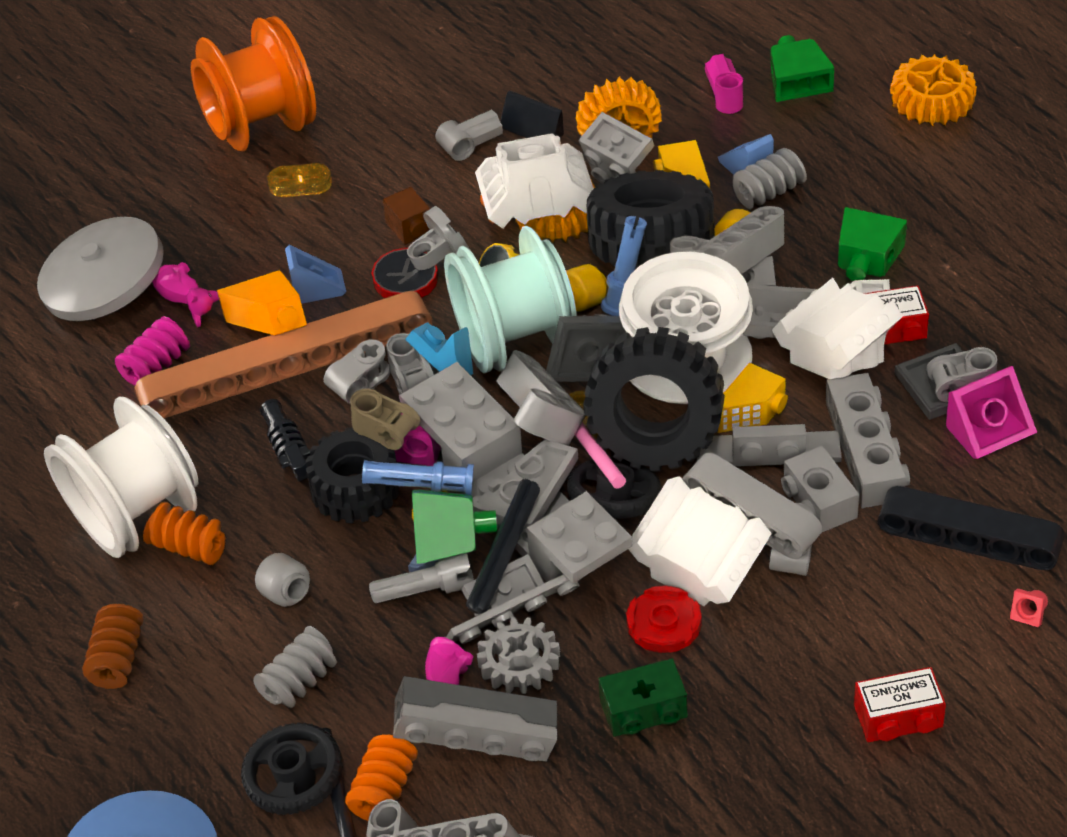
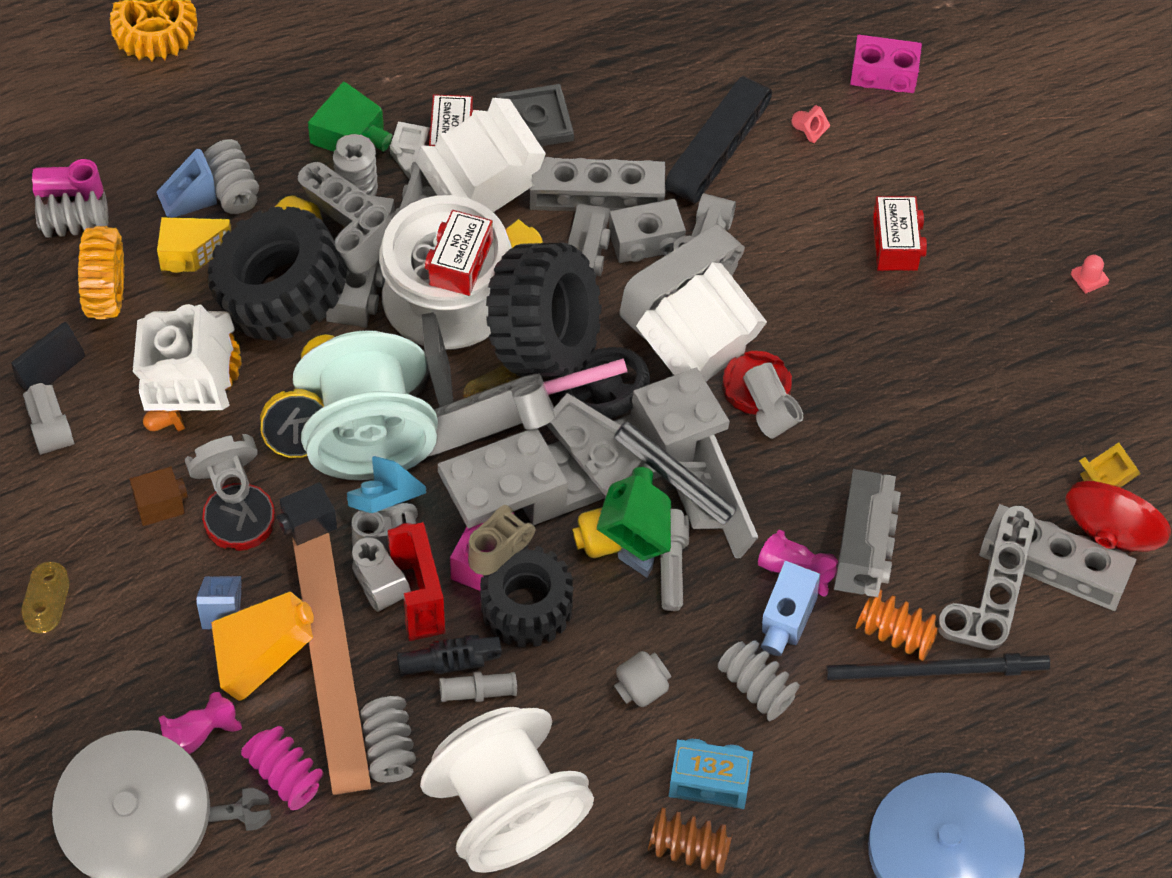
camera: 85 degrees left, 10 degrees up
(115, 338) = (241, 810): none -> dark grey bar
(185, 533) = (566, 746): orange piece -> none
(188, 650) = (710, 773): none -> dark azure brick
(193, 409) = (387, 739): none -> light grey piece
(257, 466) = (478, 686): none -> light grey pin
(292, 768) = (866, 666): black wheel -> none
(328, 397) = (423, 607): none -> red panel
(374, 672) = (789, 607): none -> light blue torso
(392, 296) = (307, 514): none -> black brick
(435, 477) = (576, 511): medium blue pin -> none
(518, 655) = (781, 496): light grey gear -> none
(613, 147) = (170, 277): light grey bracket -> none
(624, 265) = (345, 315): medium blue pin -> none
(633, 619) = (776, 408): none -> light grey piece
(643, 697) = (851, 410): dark green brick -> none
(667, 298) = (459, 252): none -> brick
(688, 92) = (70, 214): none -> light grey piece
(799, 69) = (72, 117): green torso -> none
(799, 250) = (356, 162): none -> light grey piece
(862, 541) = (713, 211): none -> light grey piece
(961, 369) = (552, 92): light grey piece -> none
(989, 413) = (596, 92): dark pink slope -> none

